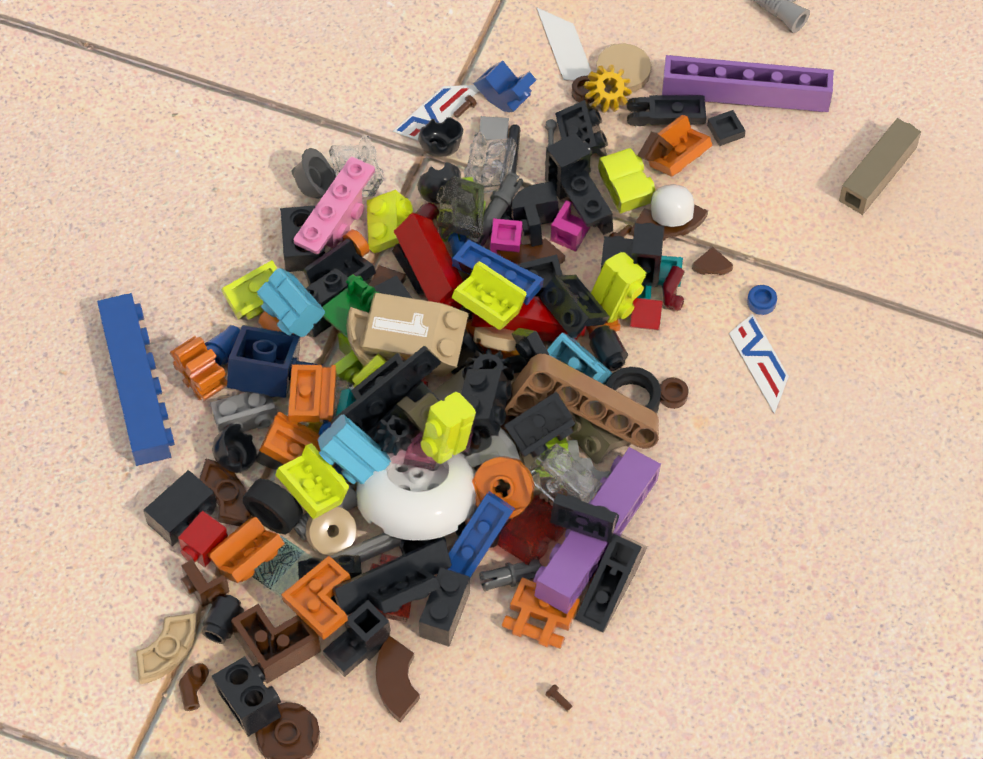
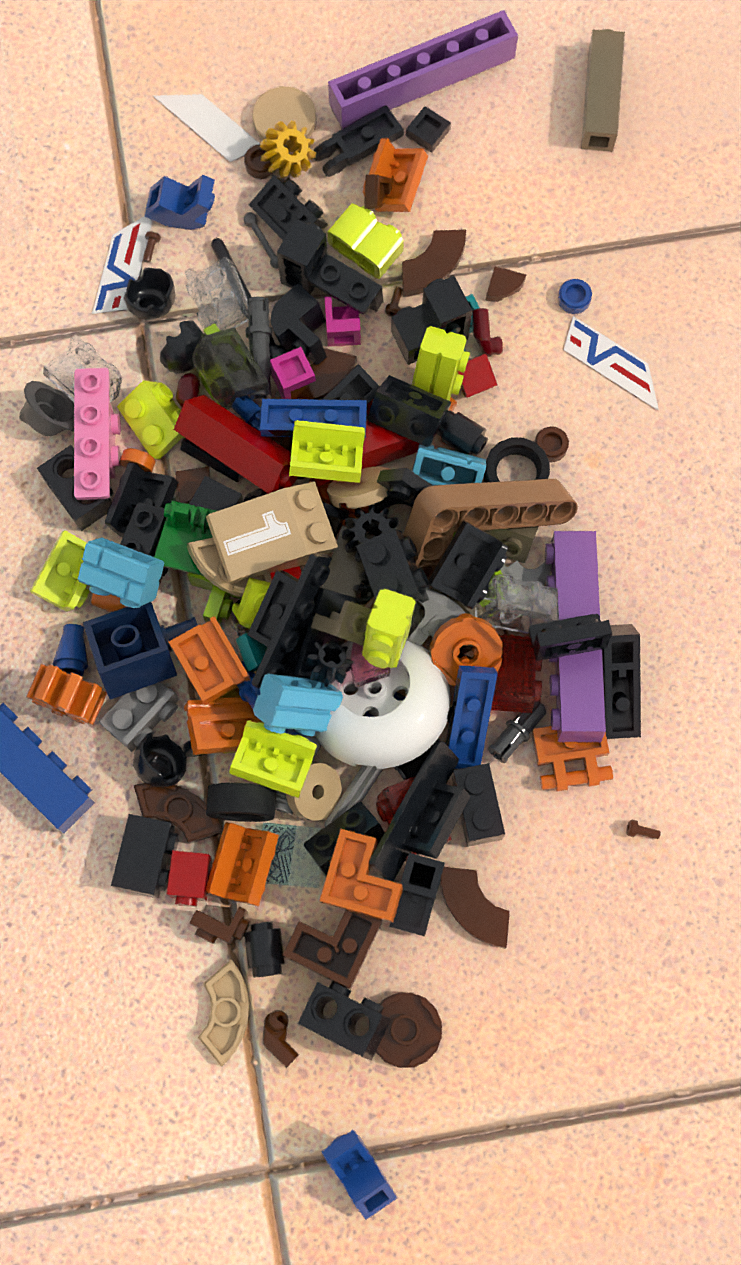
camera: 30 degrees left, 15 degrees up
(494, 127) = (196, 255): light grey tile -> none
(672, 205) = (431, 244): white hair -> none

